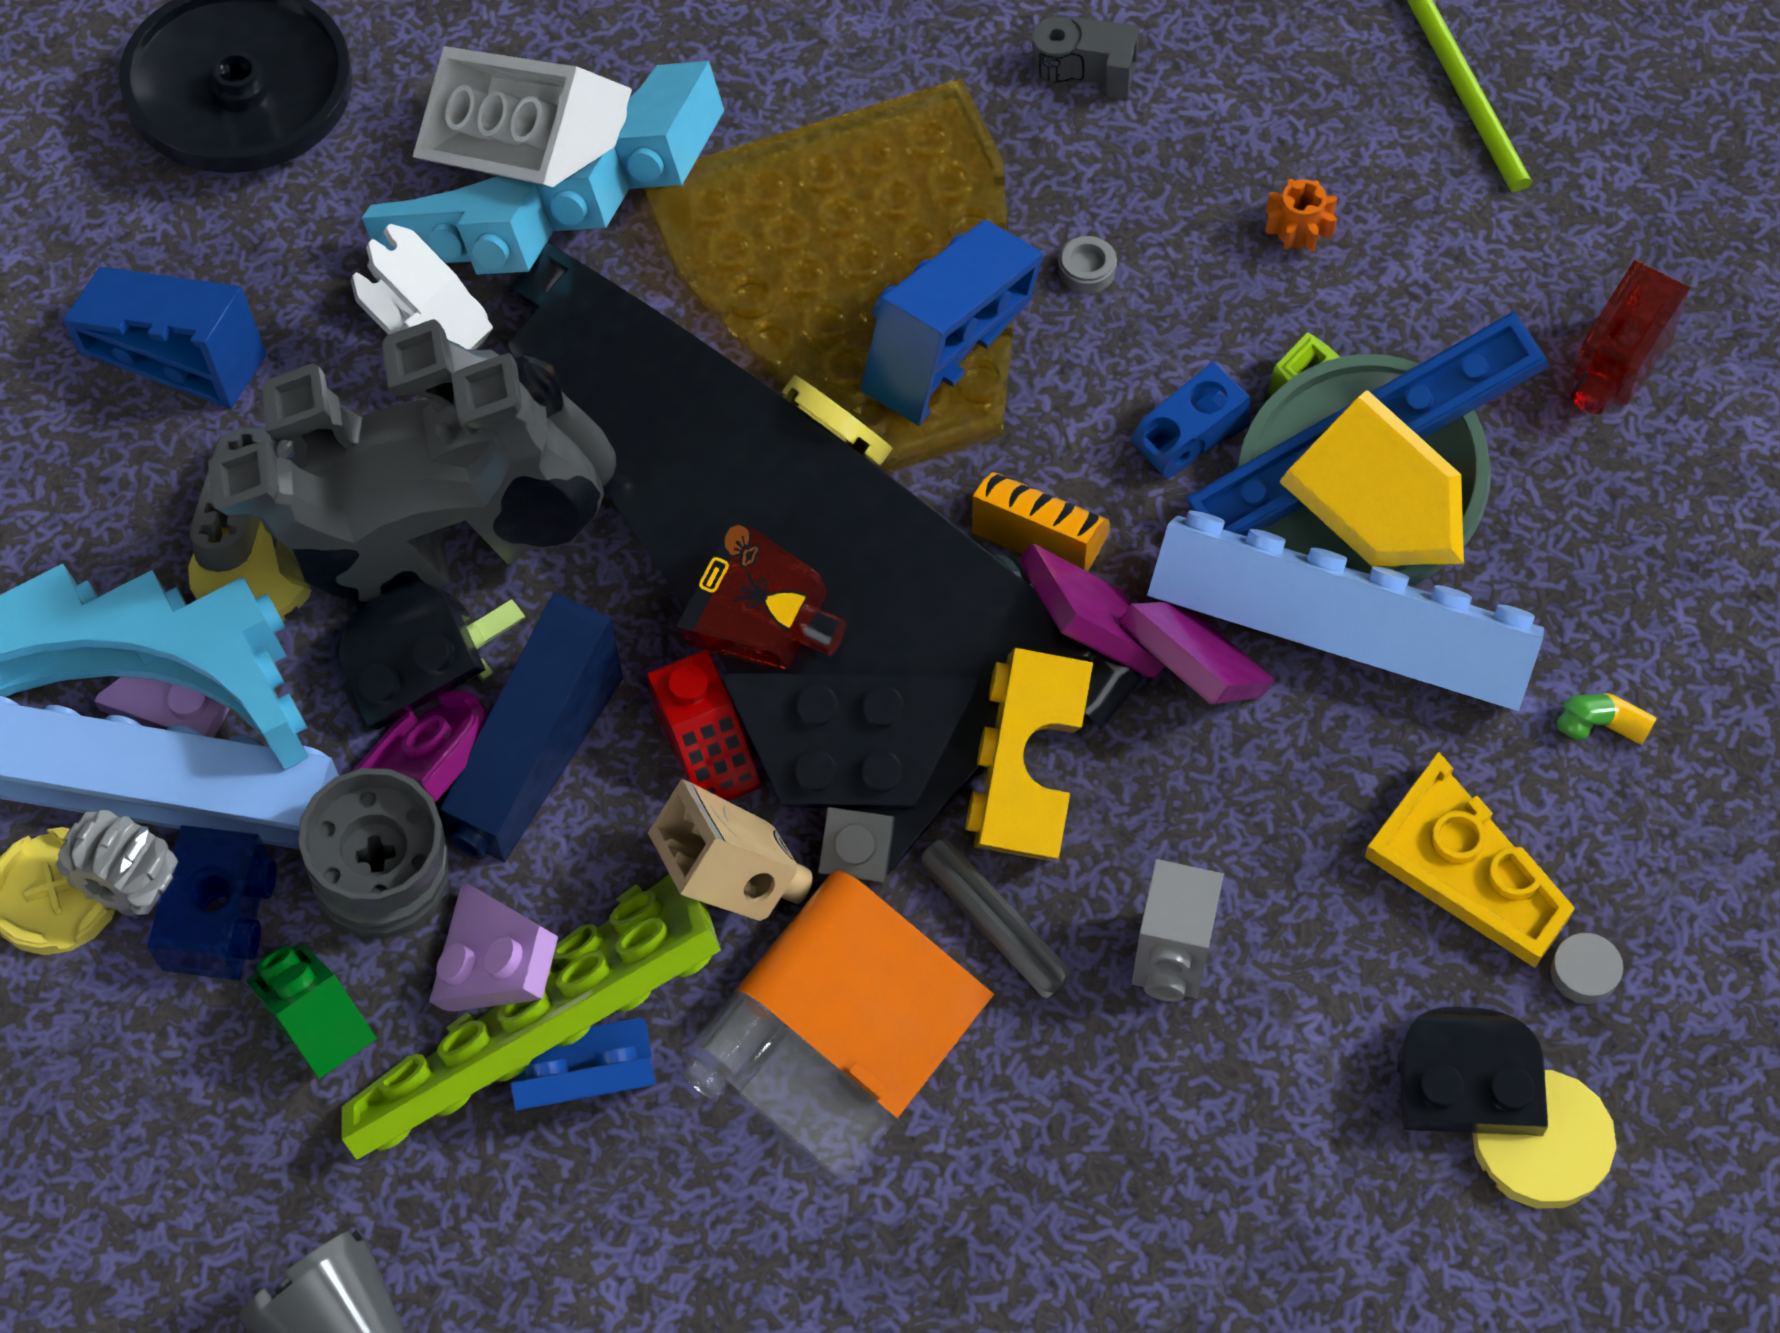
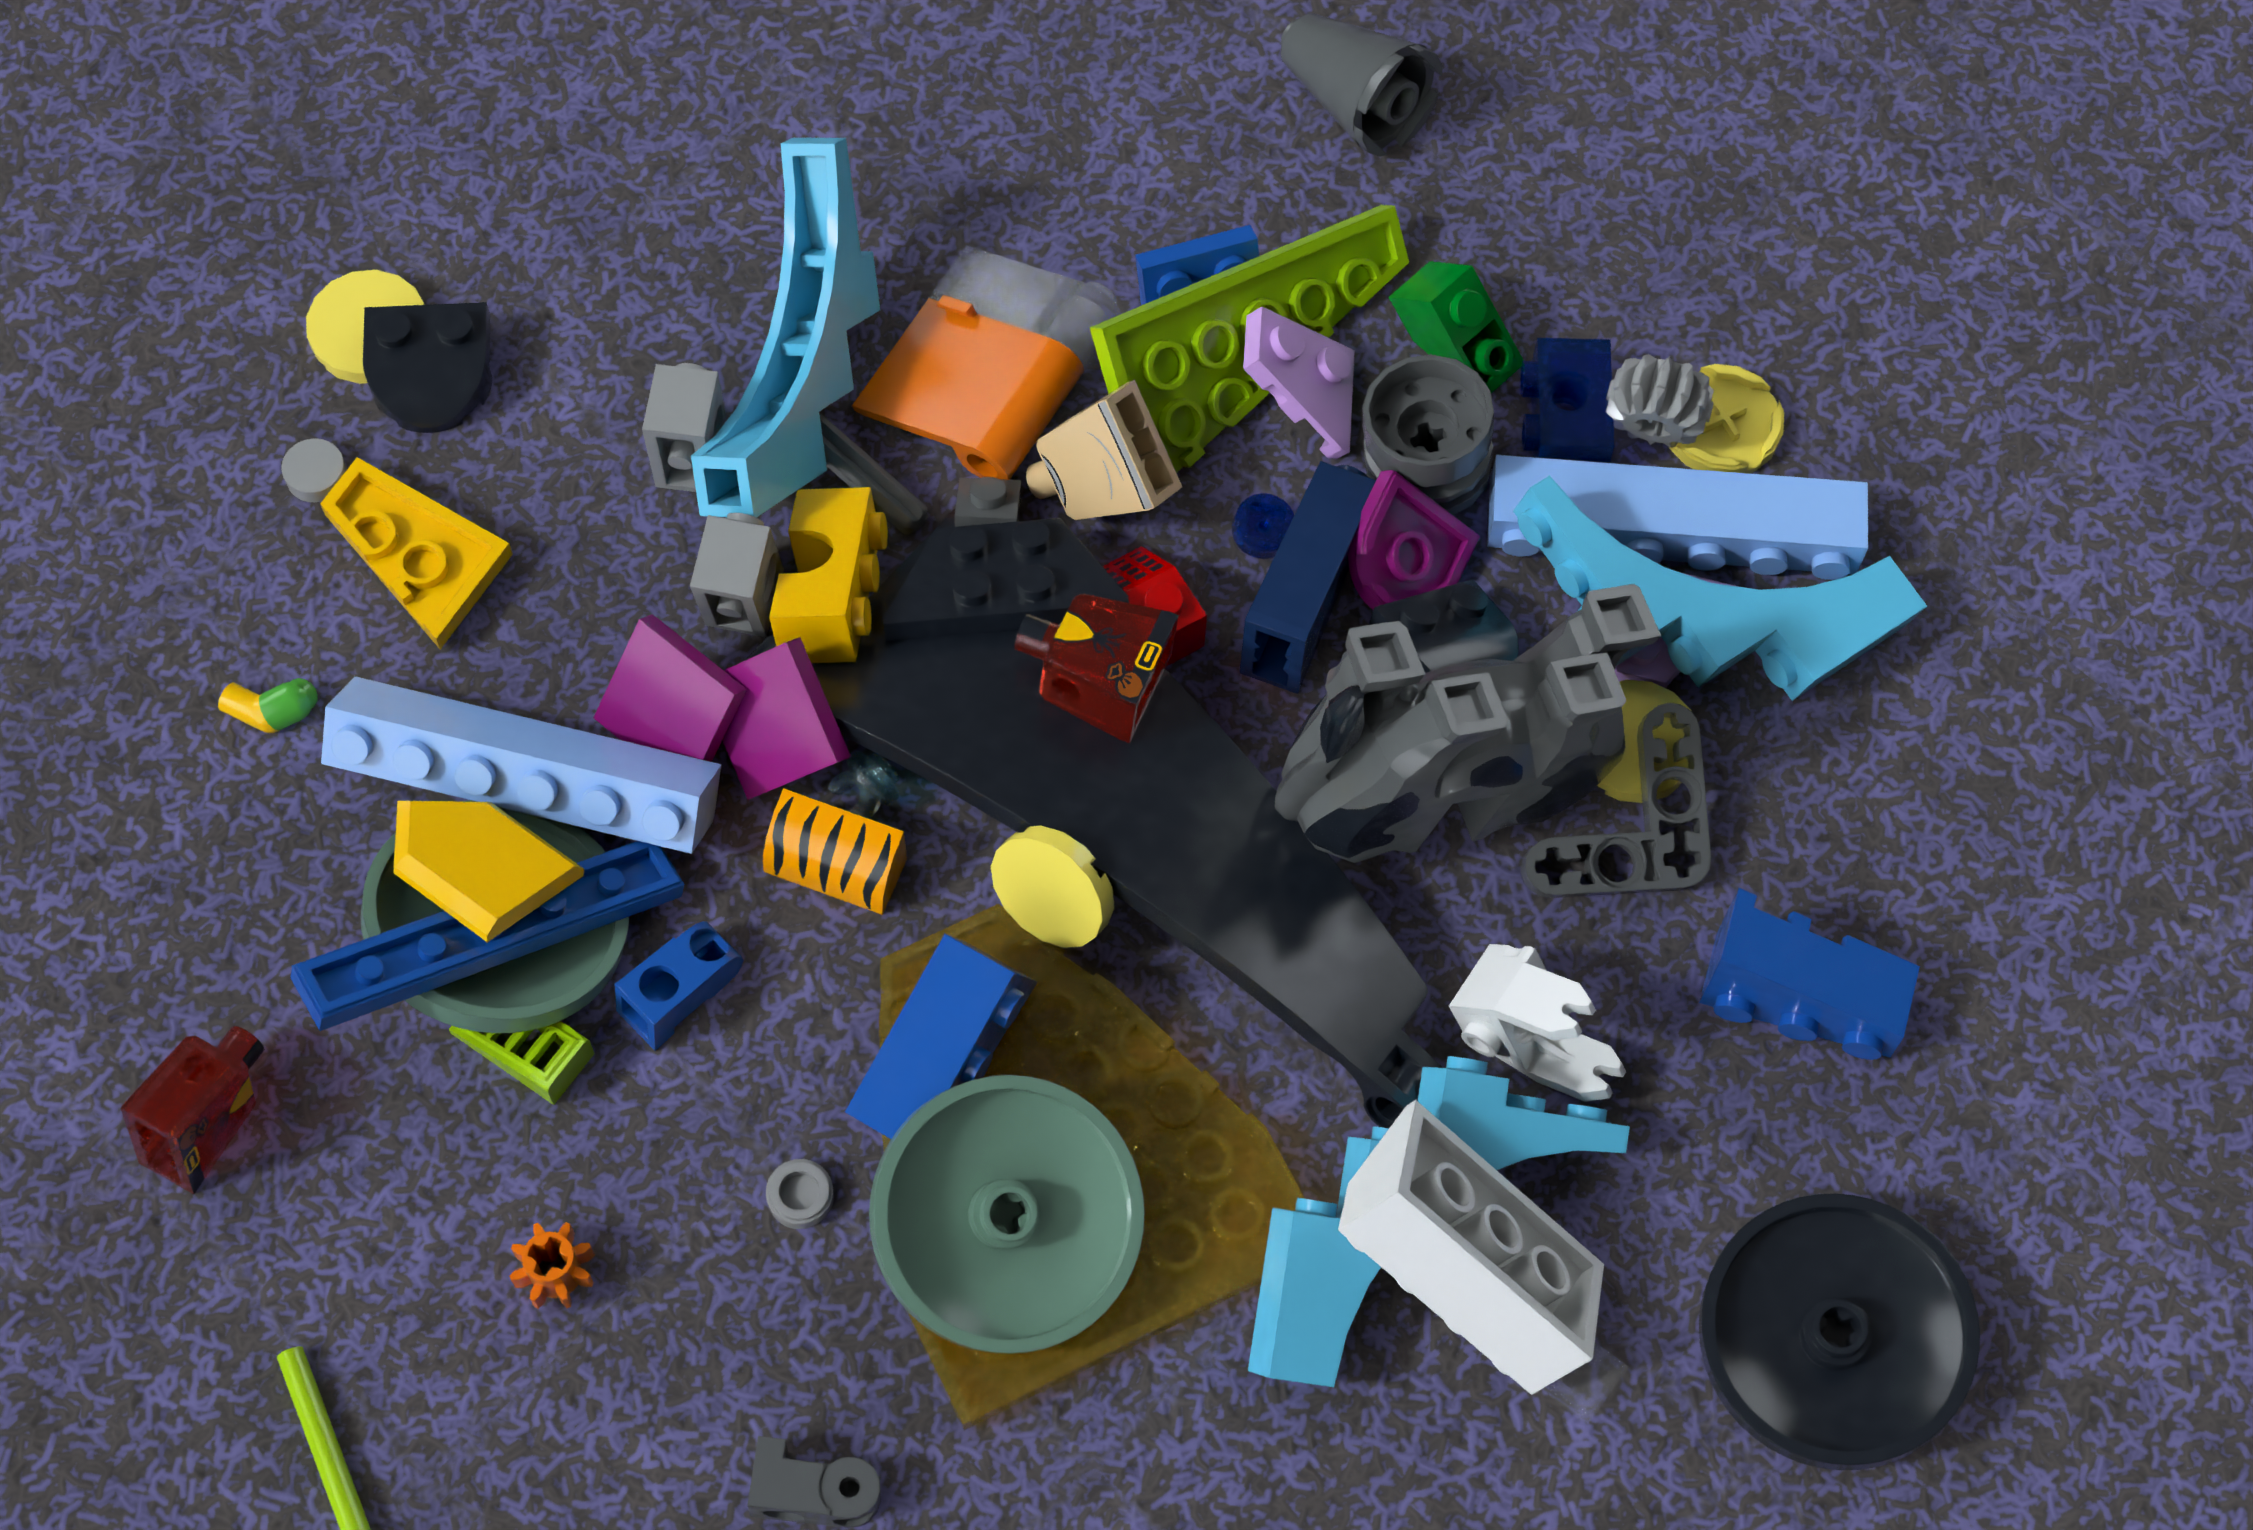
camera: 170 degrees right, 5 degrees up
(569, 808) = (1261, 525): none -> clear blue tile
(909, 175) = (1006, 1214): none -> sand green dish
(1019, 1077) = (824, 289): none -> medium azure arch
(1124, 759) = (736, 574): none -> light grey brick

